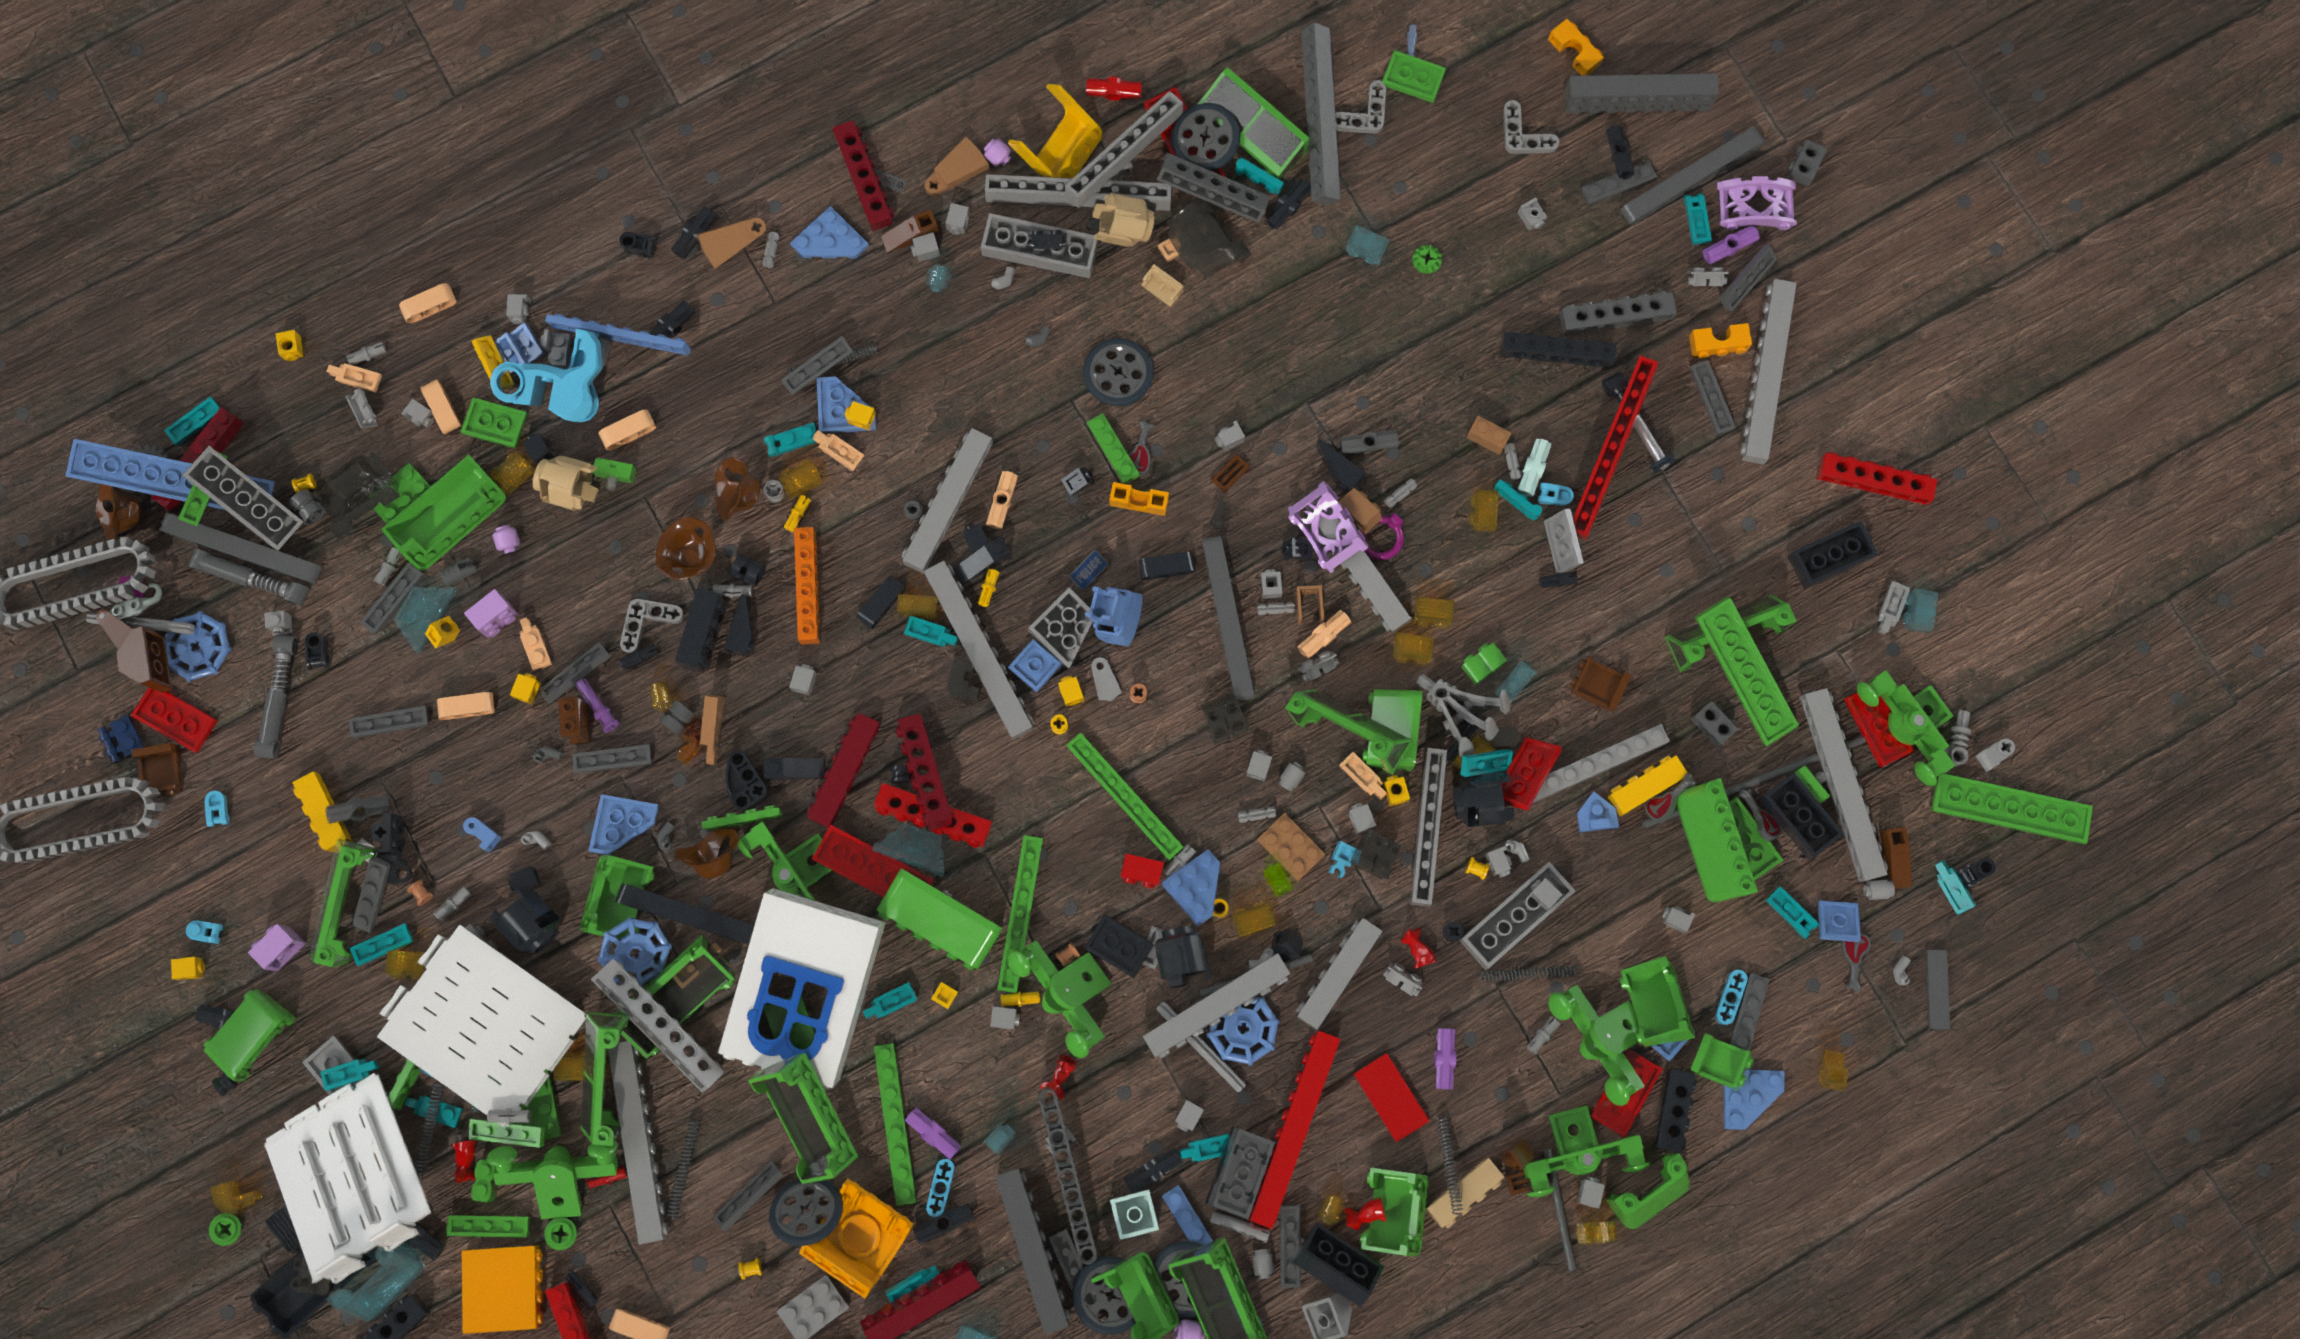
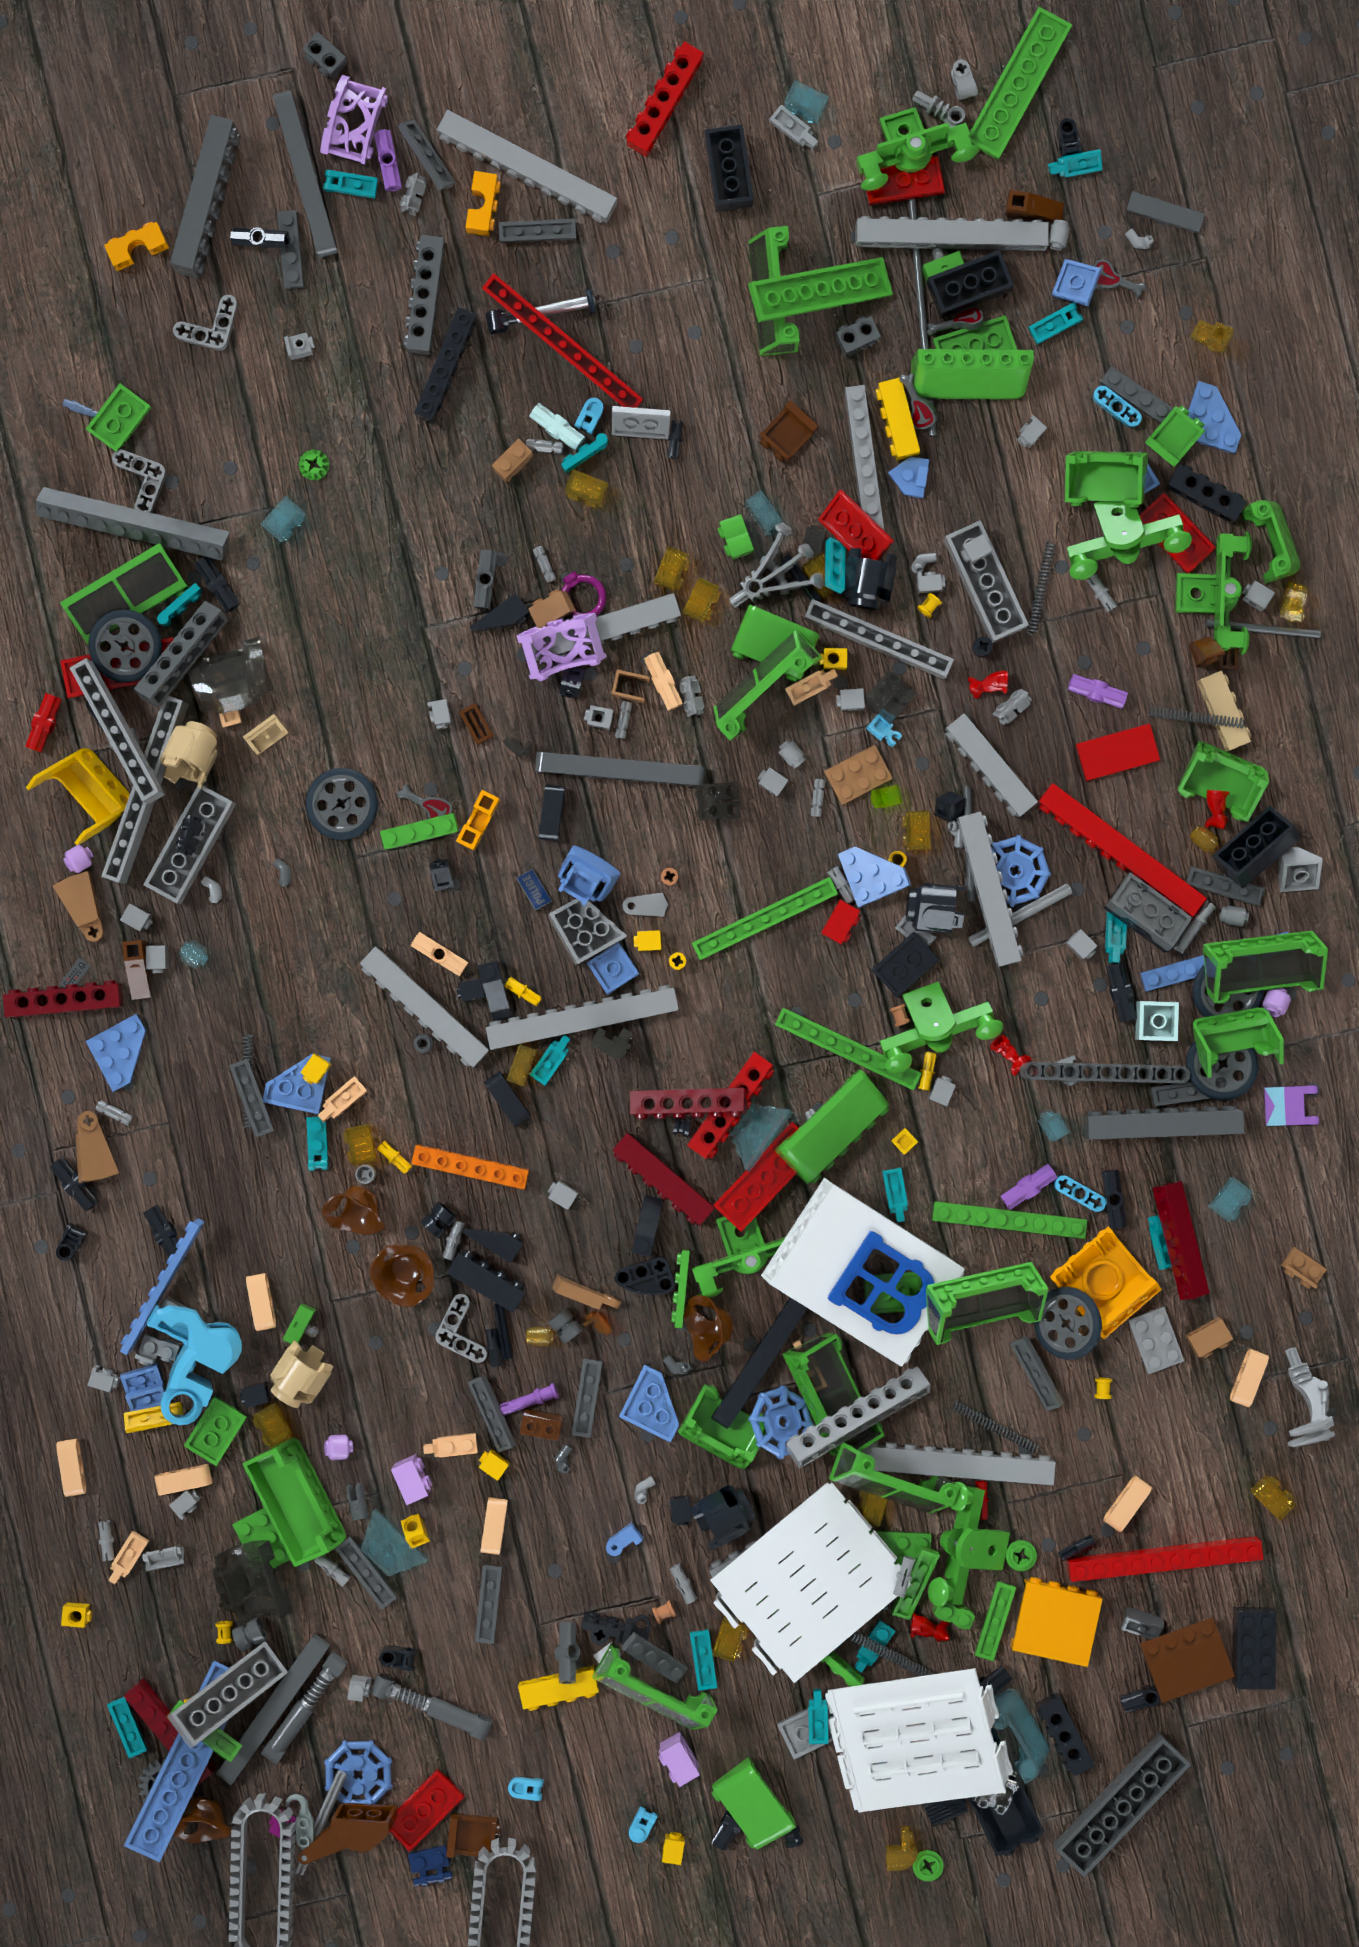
camera: 75 degrees left, 10 degrees up
(654, 662) = (503, 1332): none -> black axle

